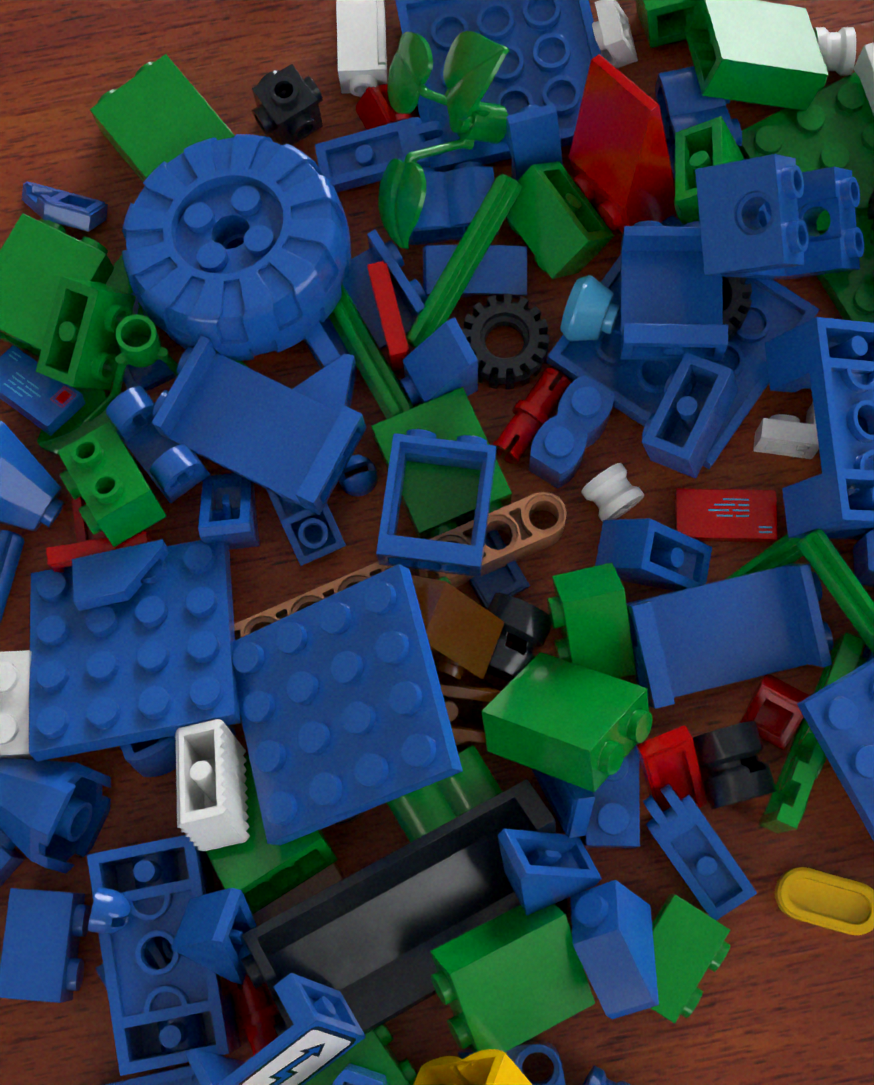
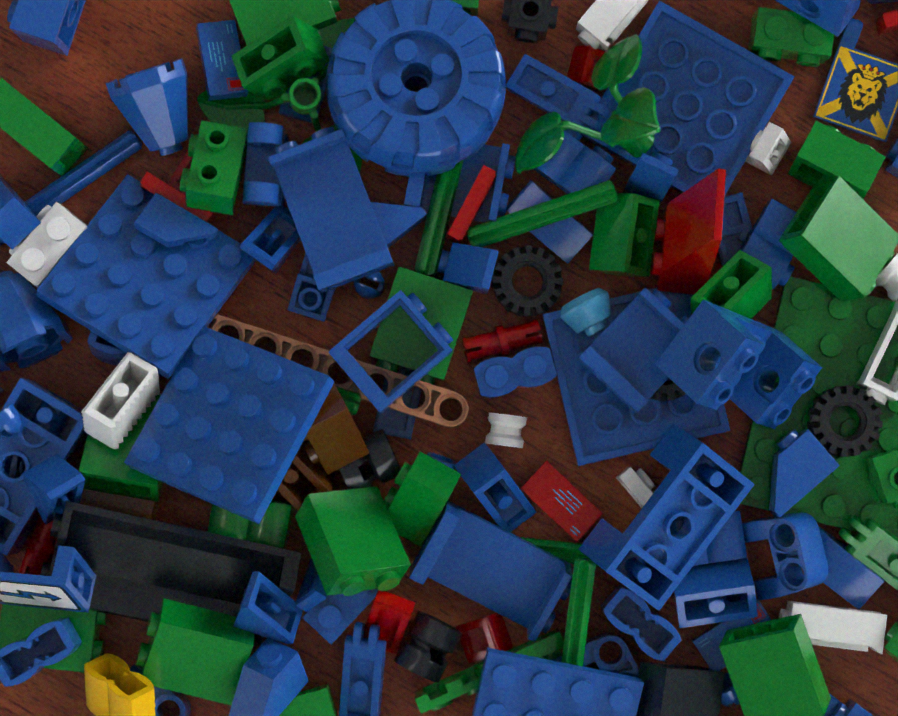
camera: 35 degrees right, 10 degrees up
(689, 414) = (585, 428): blue brick -> none

